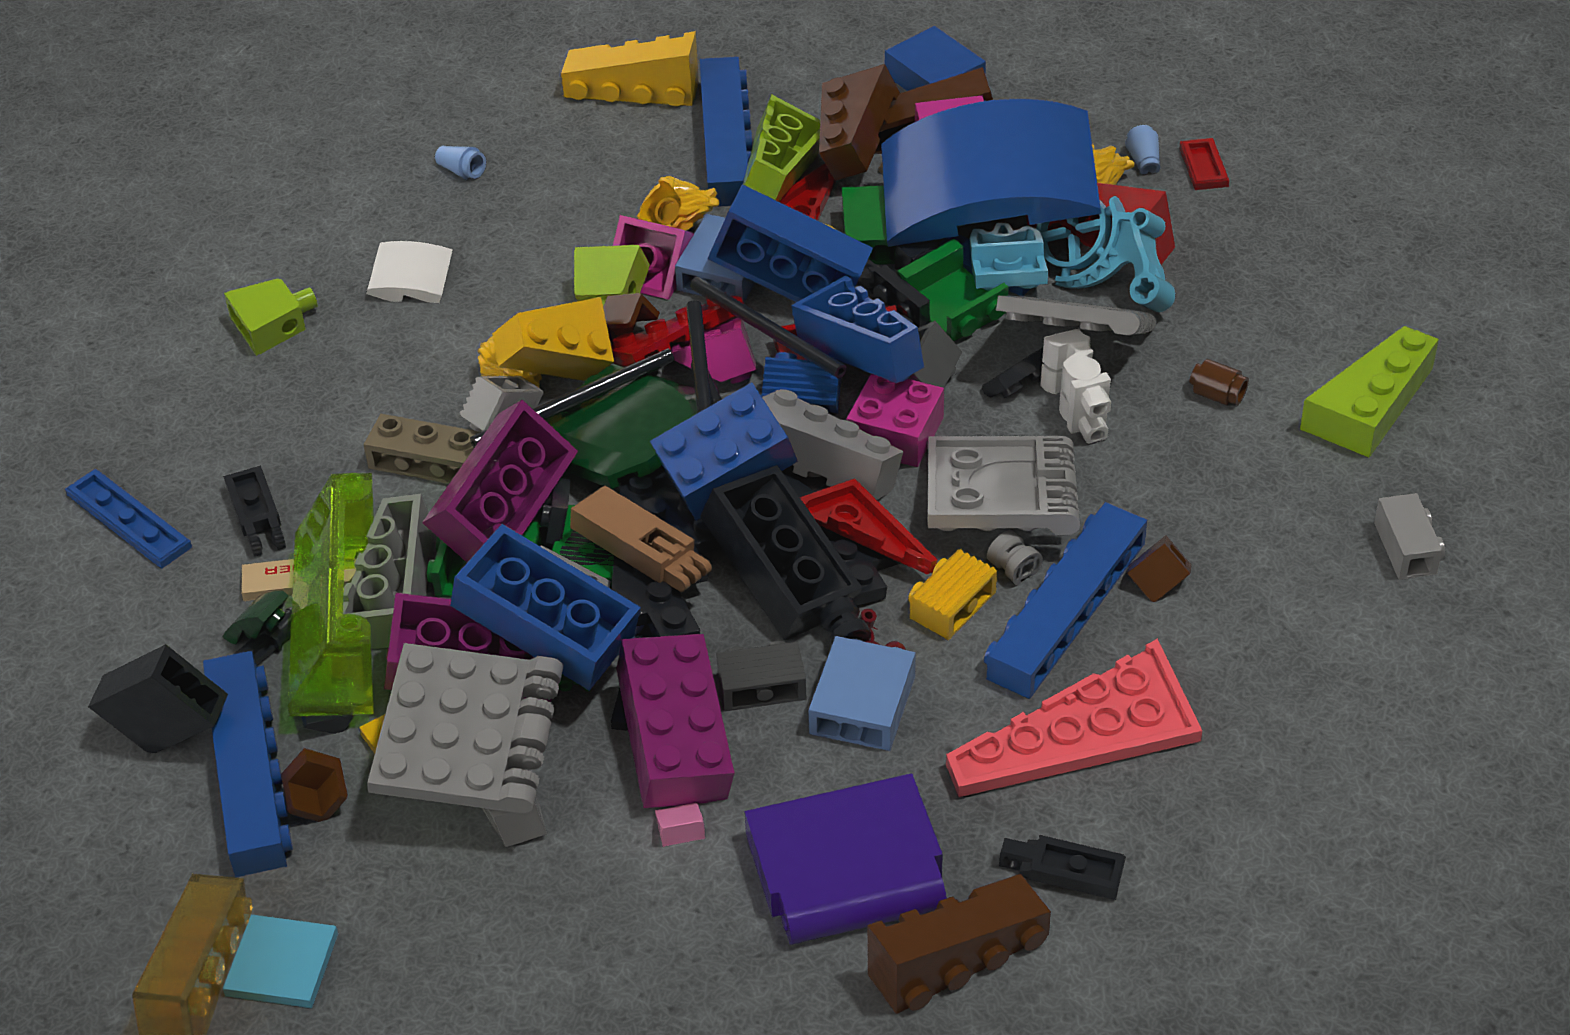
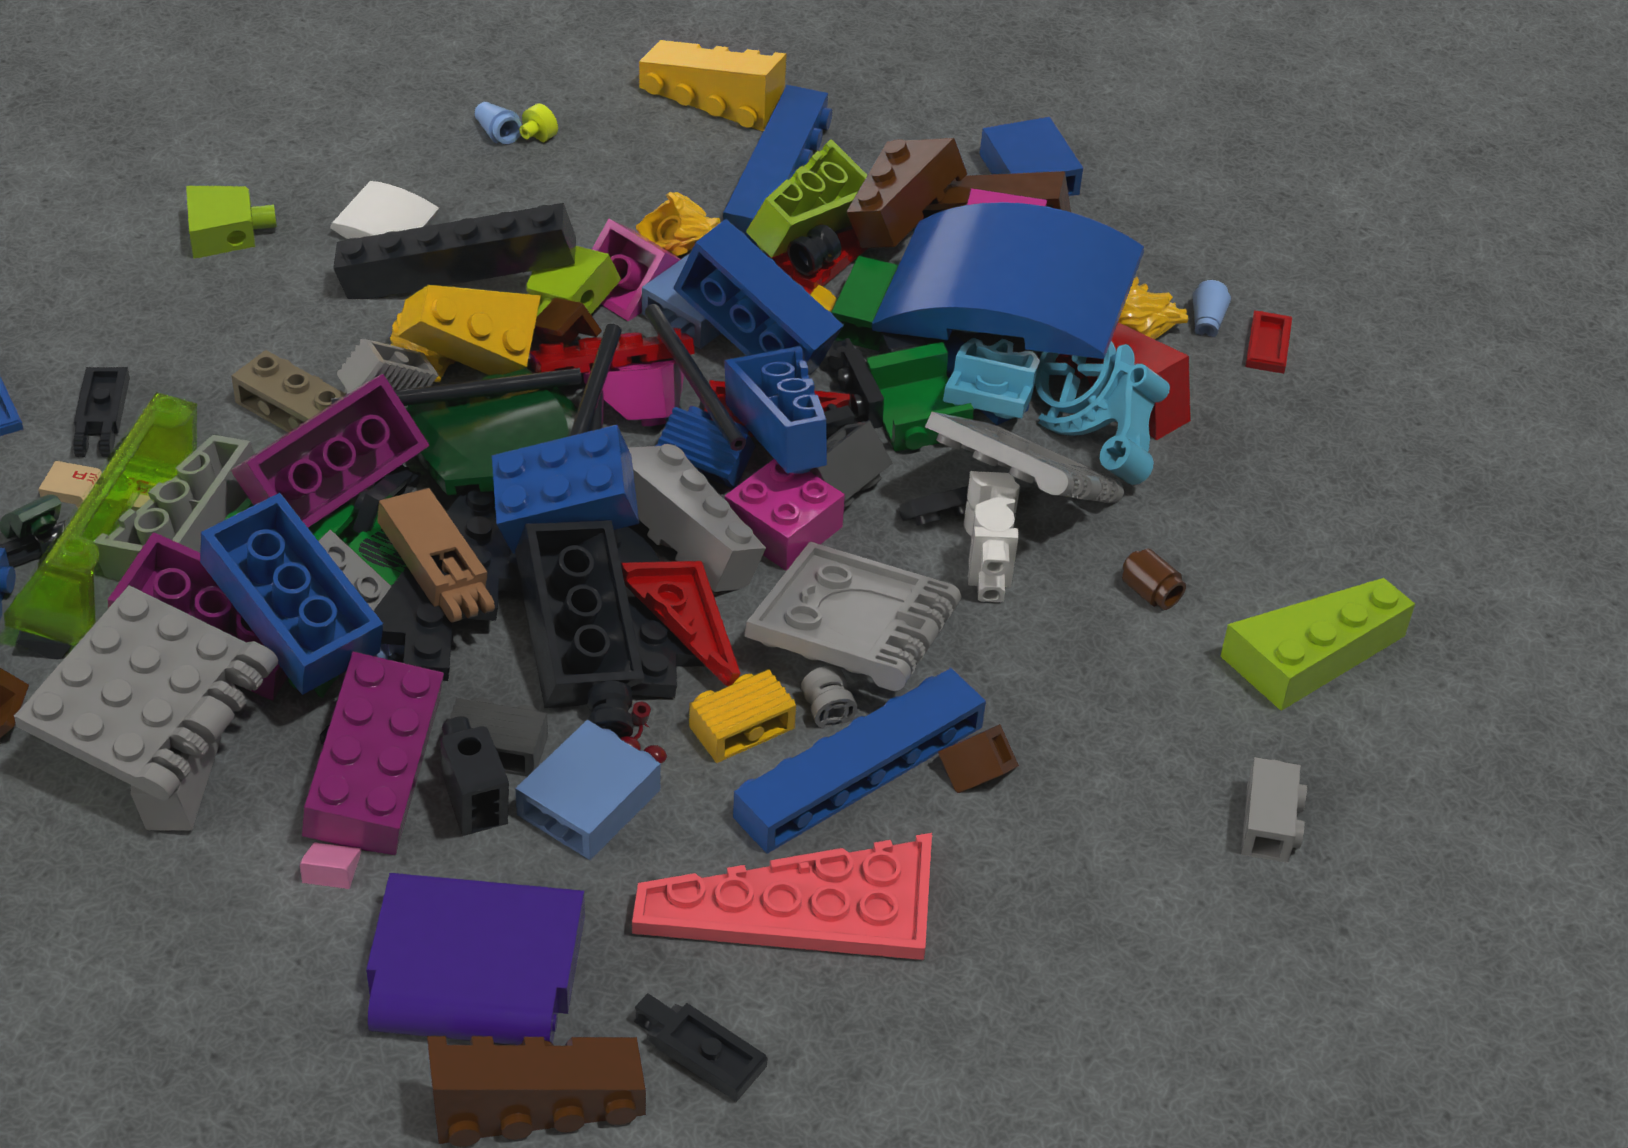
camera: 15 degrees right, 0 degrees up
(499, 151) = (538, 123): none -> neon yellow tile
(501, 282) = (455, 252): none -> black brick
(769, 711) = (473, 776): none -> black torso
(804, 191) = (814, 249): none -> black wheel

